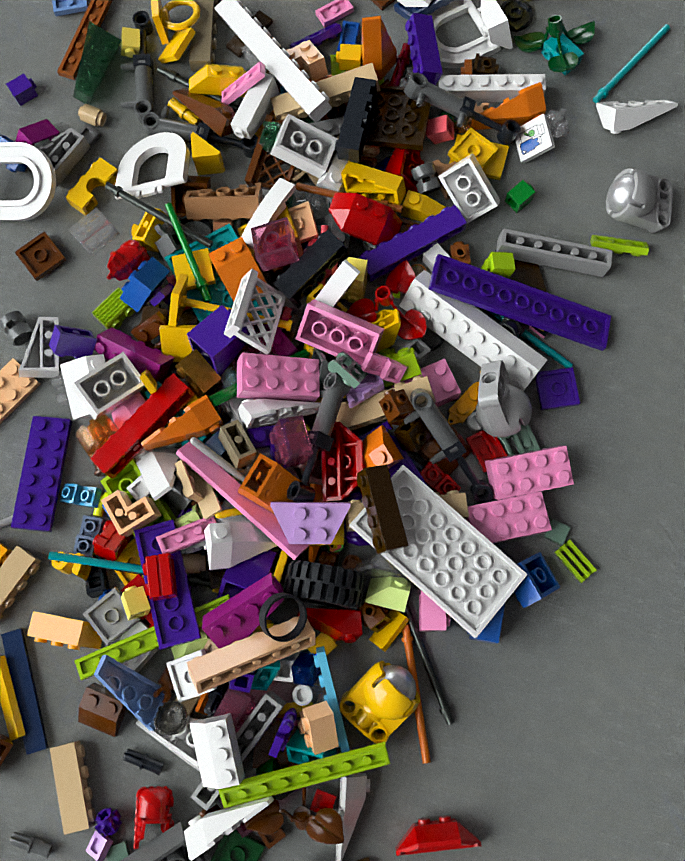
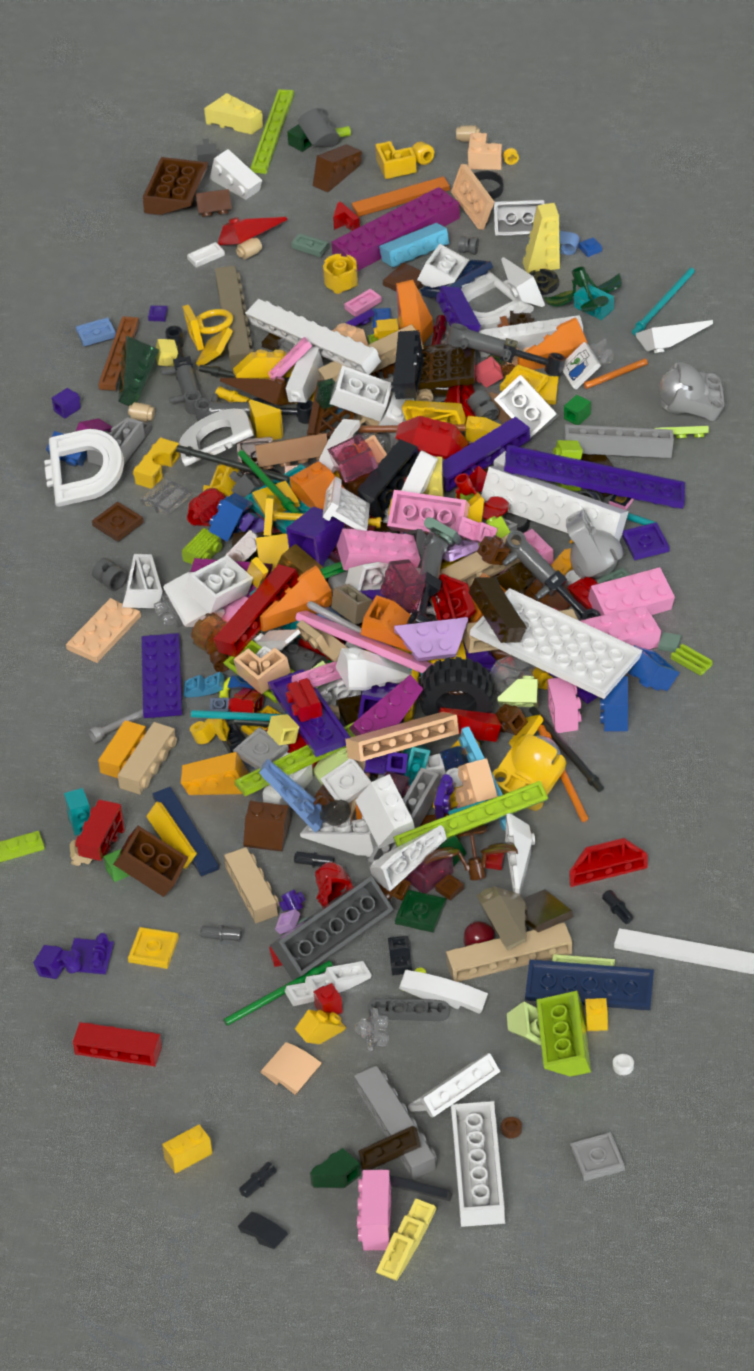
camera: 10 degrees left, 30 degrees down
(72, 342) = (170, 565): dark purple brick -> none
(298, 628) = (436, 687): black tyre -> none
(567, 151) = (615, 373): none -> orange bar

